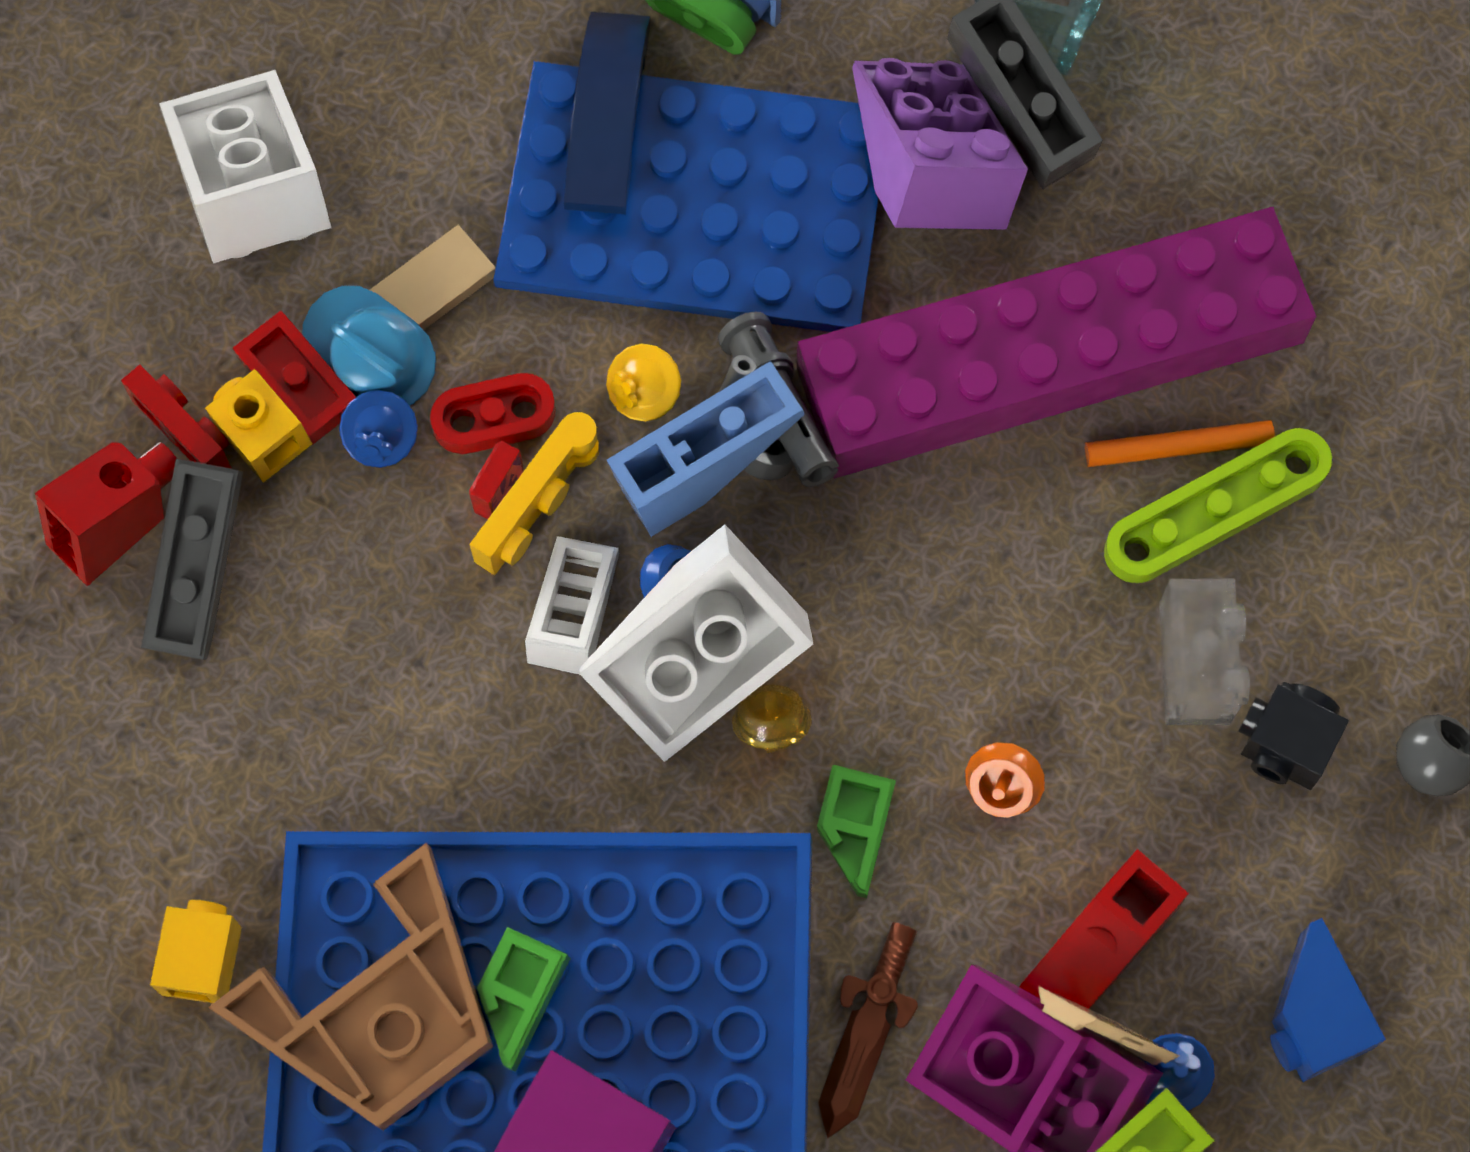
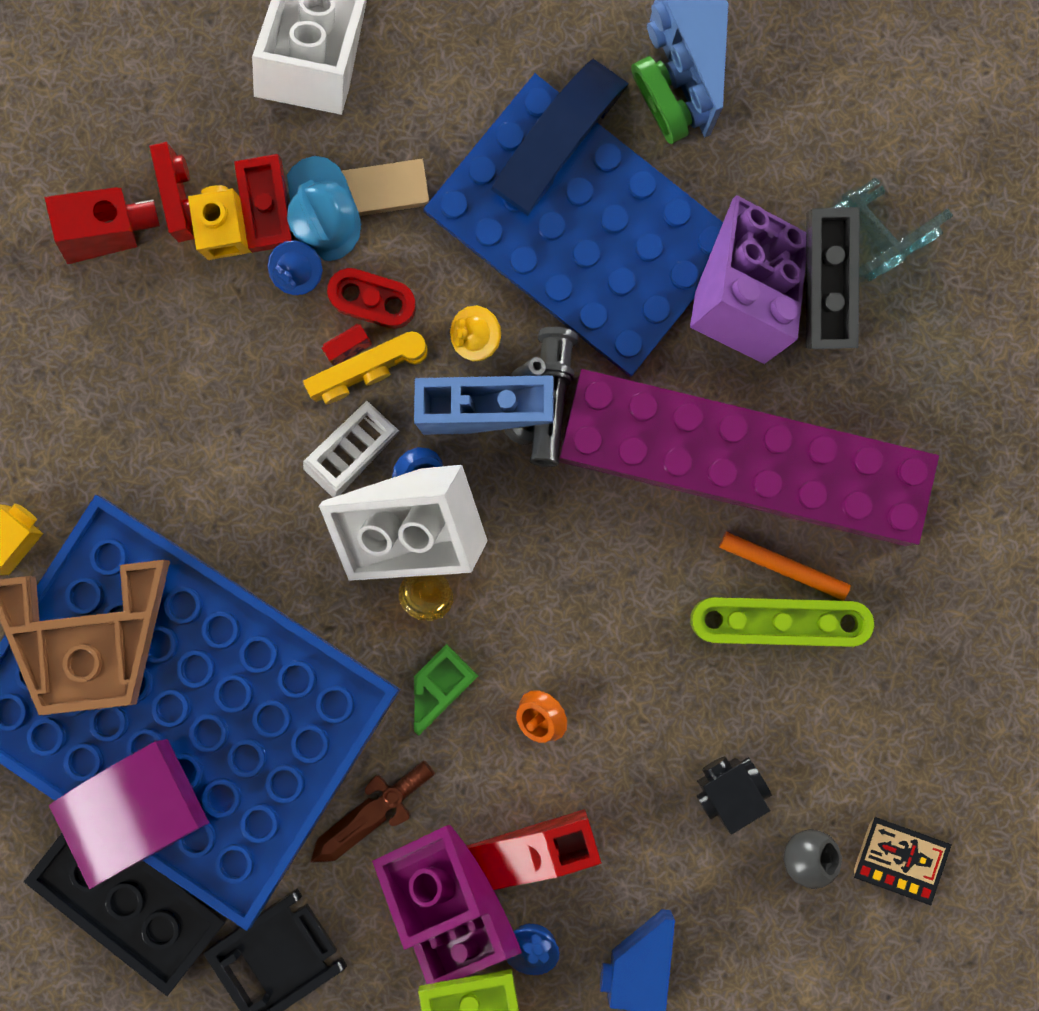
camera: 25 degrees right, 15 degrees up
(192, 559) = (133, 287): dark grey tile -> none
(519, 990) = (170, 680): bright green tile -> none
(1079, 1017) = (499, 909): tan piece -> none
(1202, 652) = (710, 713): clear brick -> none

